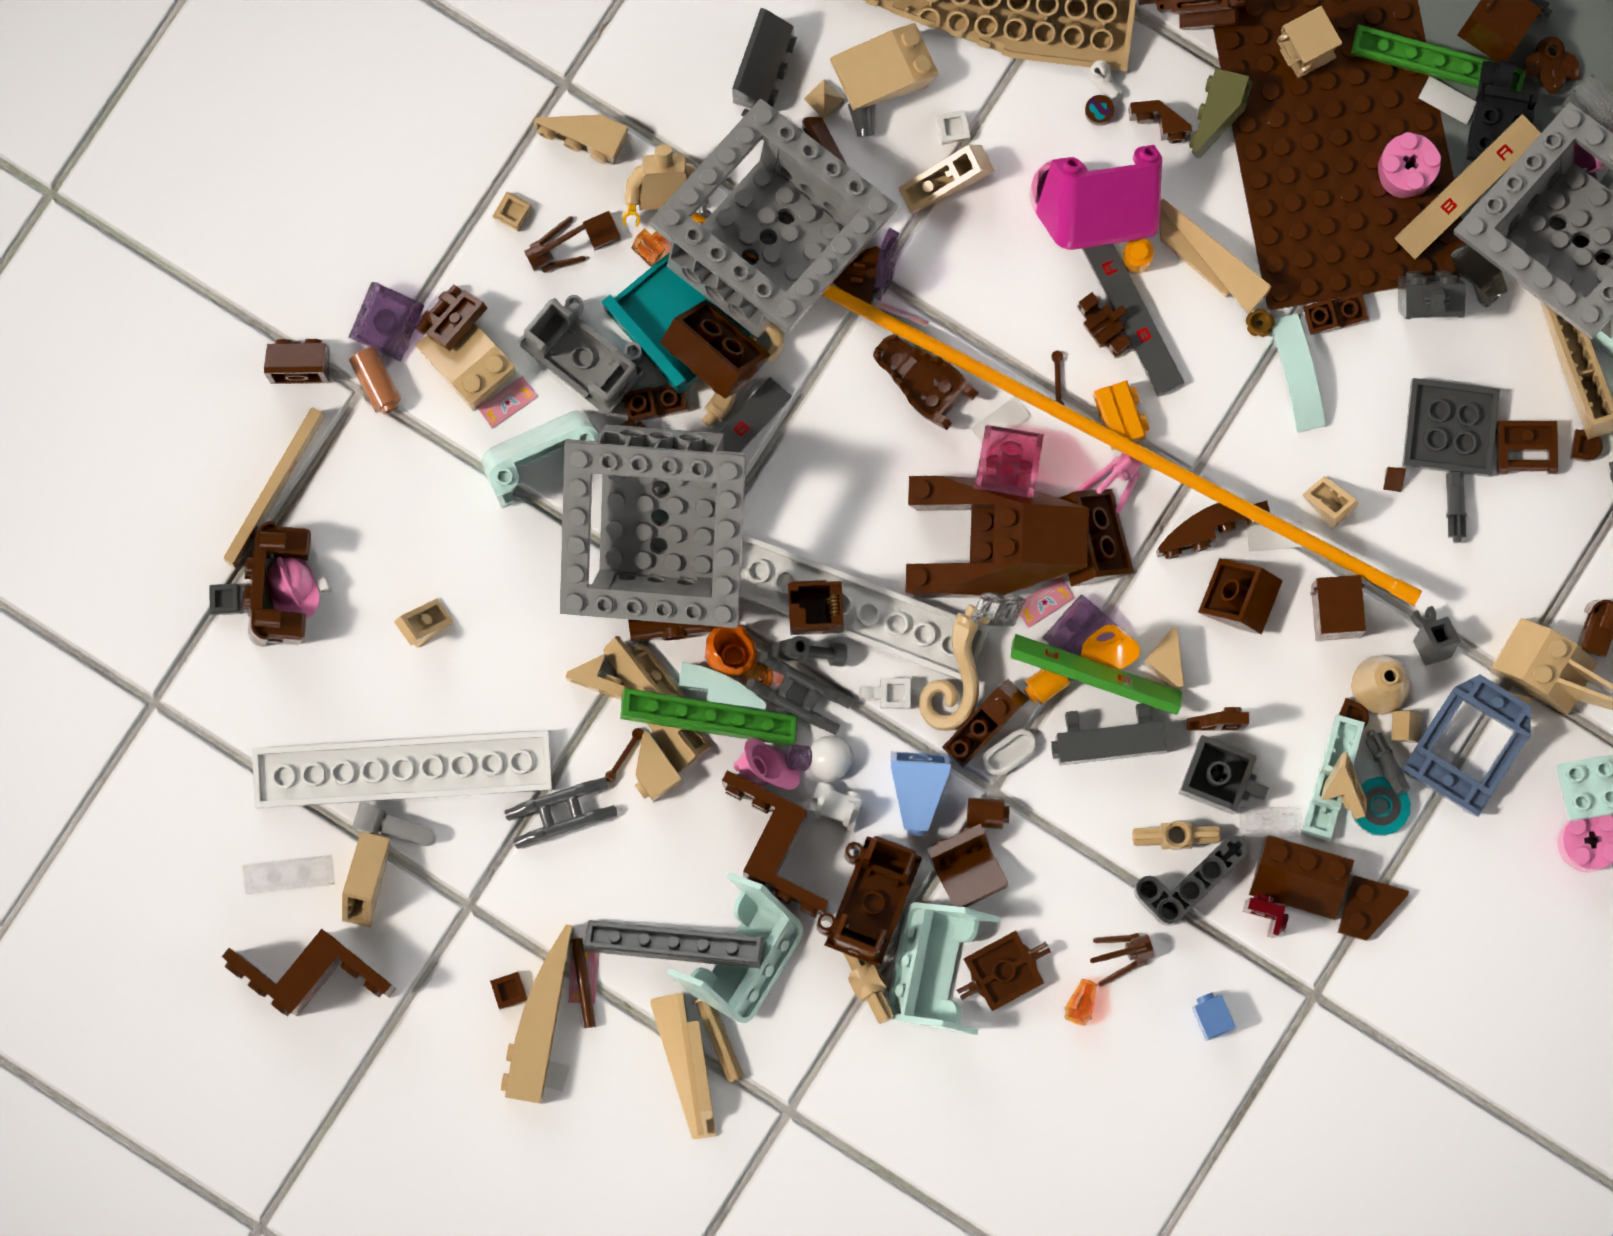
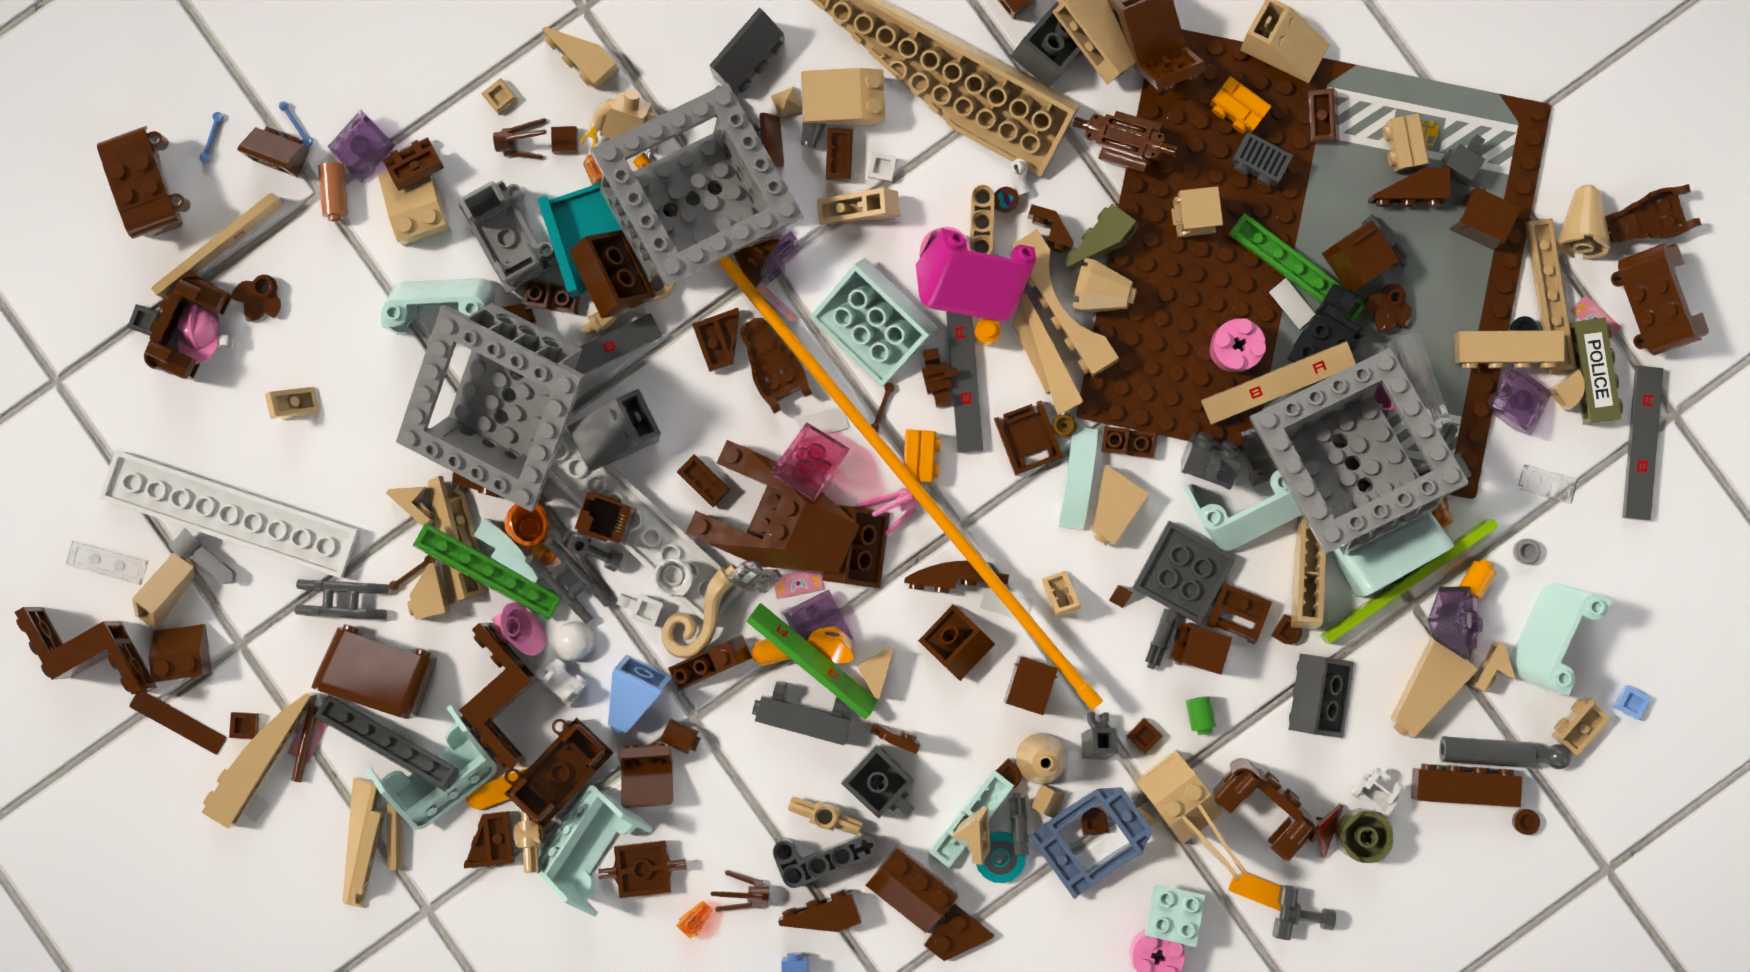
camera: 25 degrees right, 5 degrees up
(170, 449) = (139, 183): none -> reddish brown container
(216, 352) = (217, 117): none -> medium blue hinge
(283, 312) = (307, 141): none -> medium blue hinge
(339, 531) = (255, 300): none -> reddish brown plate
(409, 939) = (179, 653): none -> reddish brown slope
(434, 1016) = (178, 722): none -> reddish brown sticker
(507, 402) = (433, 249): bright pink sticker -> none
(630, 873) = (375, 673): none -> reddish brown windscreen
(786, 513) = (615, 431): none -> dark grey slope
(798, 757) = (548, 631): clear purple bush -> none
(807, 956) = (491, 792): none -> light orange piece
(828, 1007) = (492, 841): none -> reddish brown wing
(853, 376) = (718, 338): none -> reddish brown wing
(899, 532) = (703, 481): none -> reddish brown plate
(902, 131) = (839, 154): none -> reddish brown plate
(912, 643) = (673, 577): none -> white hair
(1009, 752) = (720, 694): white tile -> none
(1011, 293) = (873, 321): none -> light aqua slope
(1083, 130) = (985, 211): none -> tan beam
(1223, 347) = (1025, 434): none -> reddish brown container
(1224, 939) = (827, 915): none -> reddish brown slope
(1242, 161) = (1102, 289): none -> tan cone
(1255, 228) = (1092, 348): none -> tan arch
(1264, 907) = (870, 905): dark red bracket -> none
(1272, 821) = (905, 835): clear slope -> none
(1349, 384) = (1115, 505): none -> tan slope
(1464, 728) = (1094, 821): none -> reddish brown tile
(1480, 616) = (1144, 735): none -> reddish brown tile
(1501, 343) = (1249, 523): none -> light aqua windscreen
(1501, 498) = (1199, 648): none -> reddish brown piece
(1531, 569) = (1201, 715): none -> bright green brick

